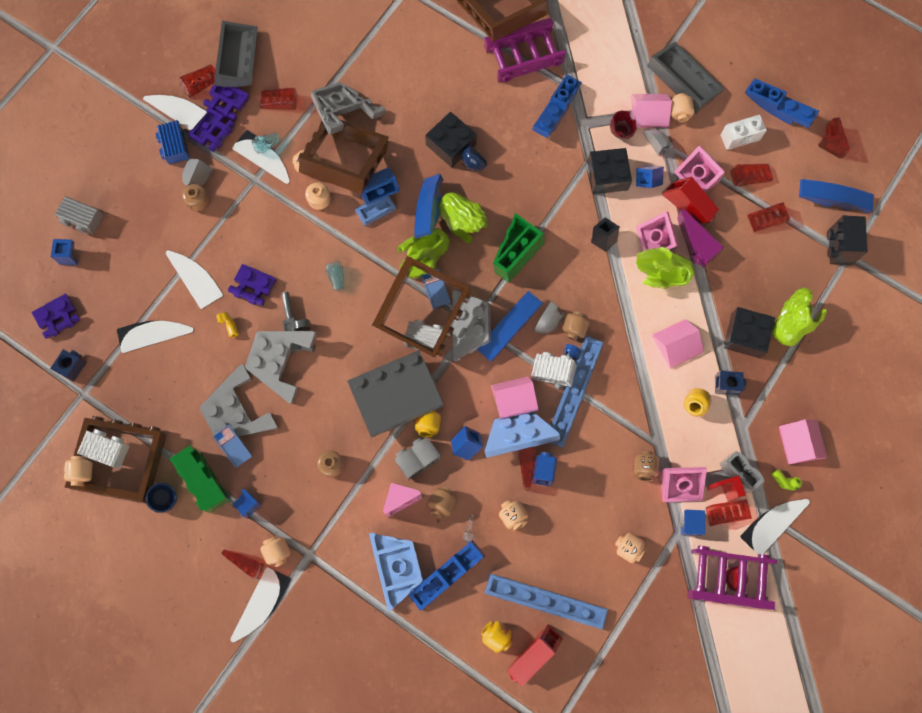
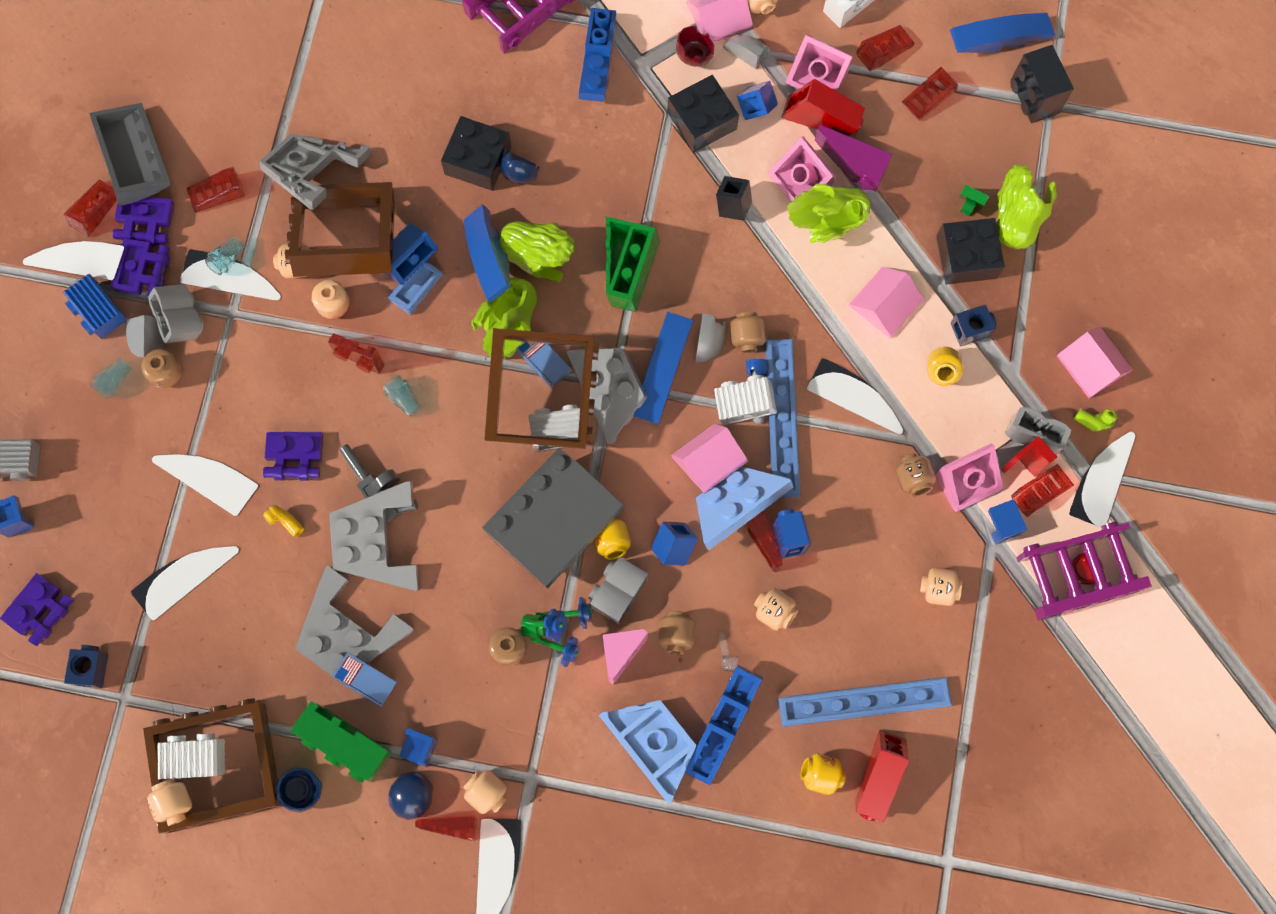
camera: 25 degrees left, 0 degrees up
(162, 191) = (110, 379): none -> clear light blue cone
(219, 166) = (175, 313): none -> light grey brick
(229, 532) = (410, 795): none -> dark blue hair
(323, 242) = (345, 349): none -> clear red wing
(361, 462) = (553, 625): none -> plant
(629, 395) = (852, 394): none -> white sticker
(767, 298) = (972, 197): none -> green tile

